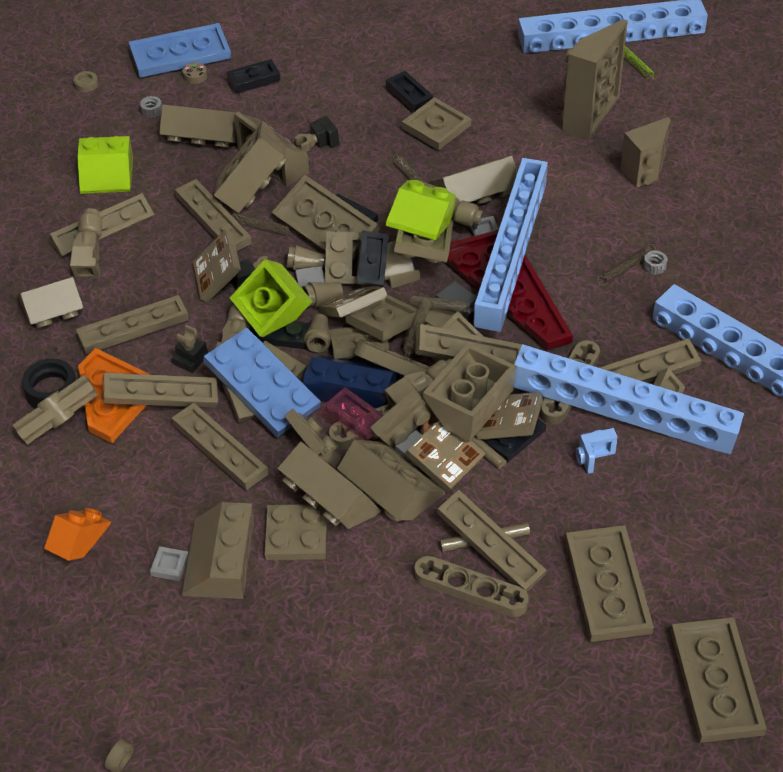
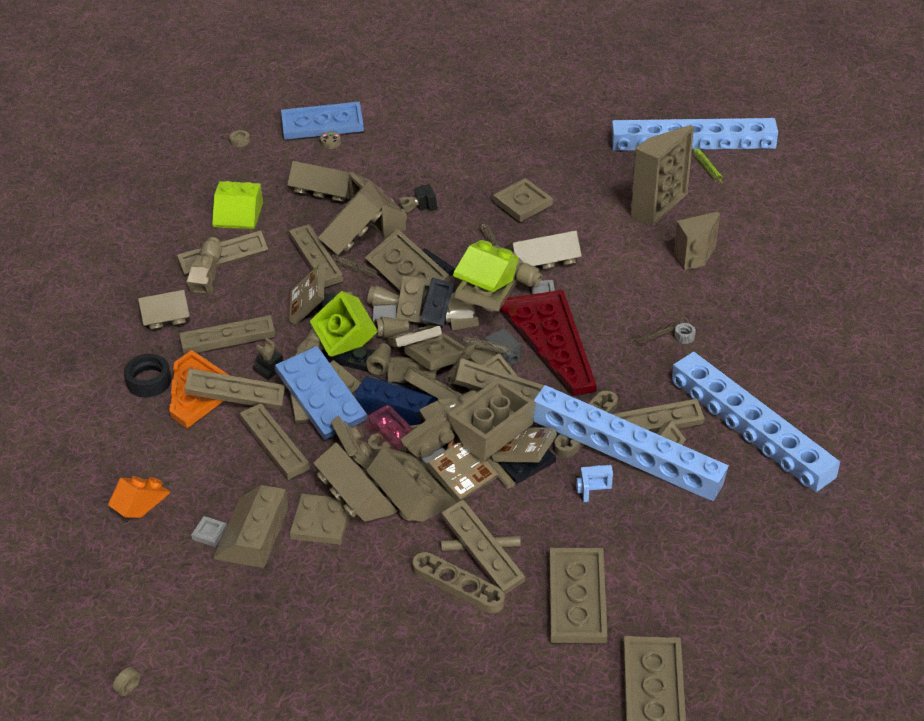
camera: 10 degrees right, 5 degrees down
(55, 409) = (145, 394): dark tan piece -> none
(148, 102) = (285, 162): light grey axle -> none
(253, 75) = (378, 146): black plate -> none
(408, 91) = (505, 170): black plate -> none
(510, 245) = (557, 304): light blue brick -> none

